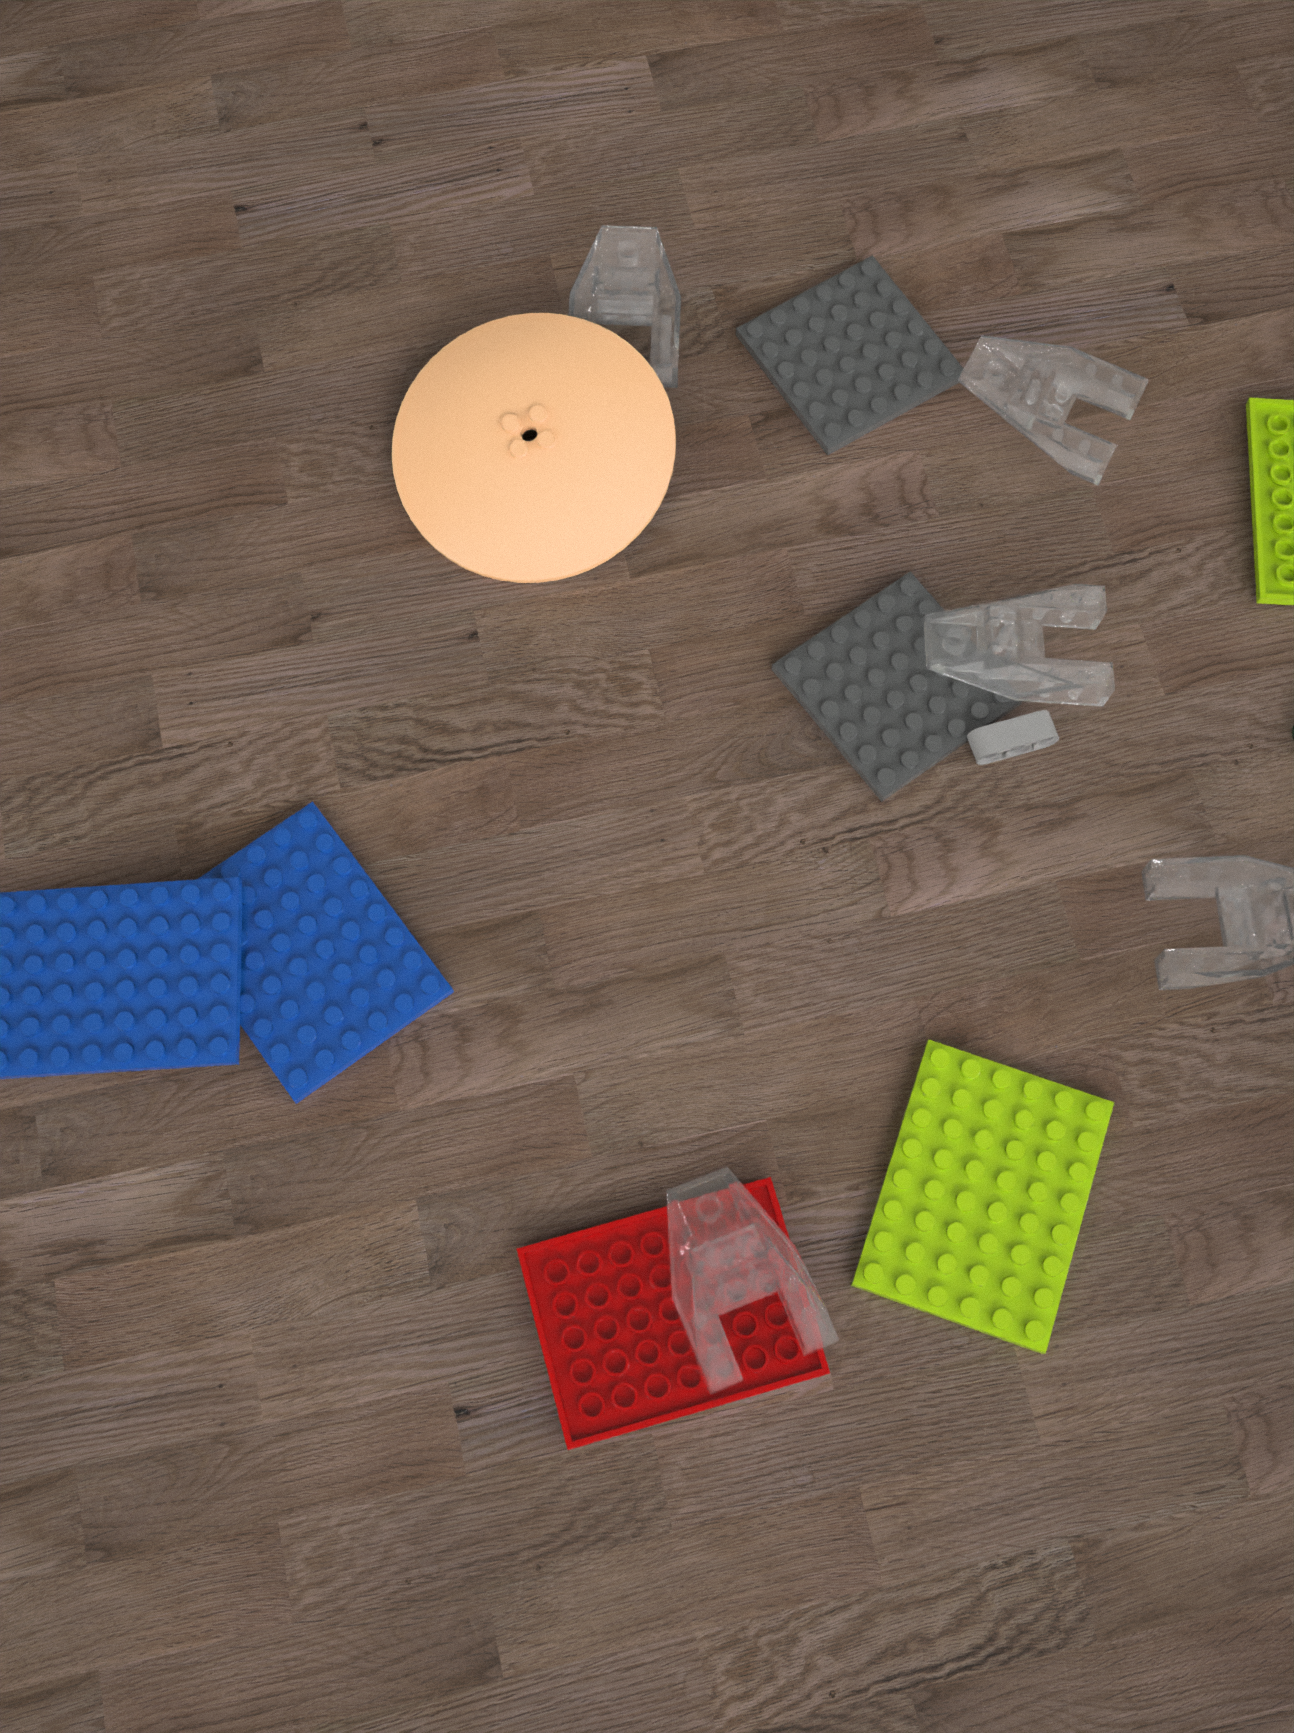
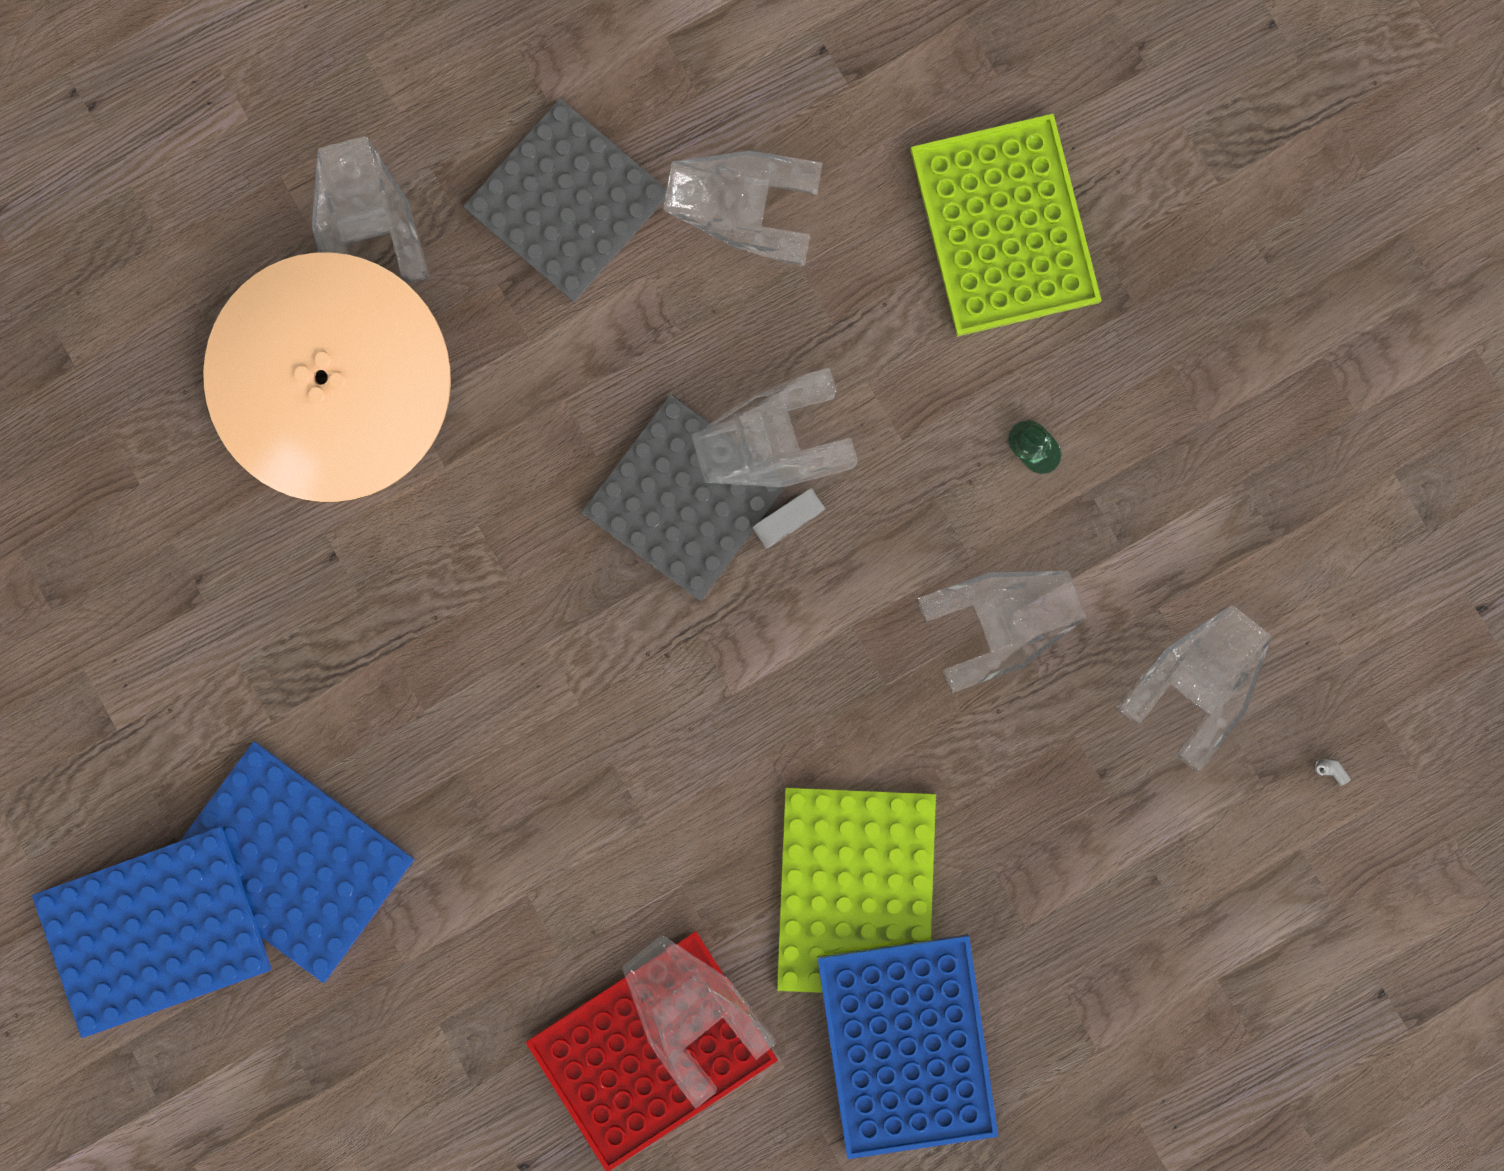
camera: 15 degrees left, 15 degrees up
(1005, 1409) = (907, 1046): none -> blue plate

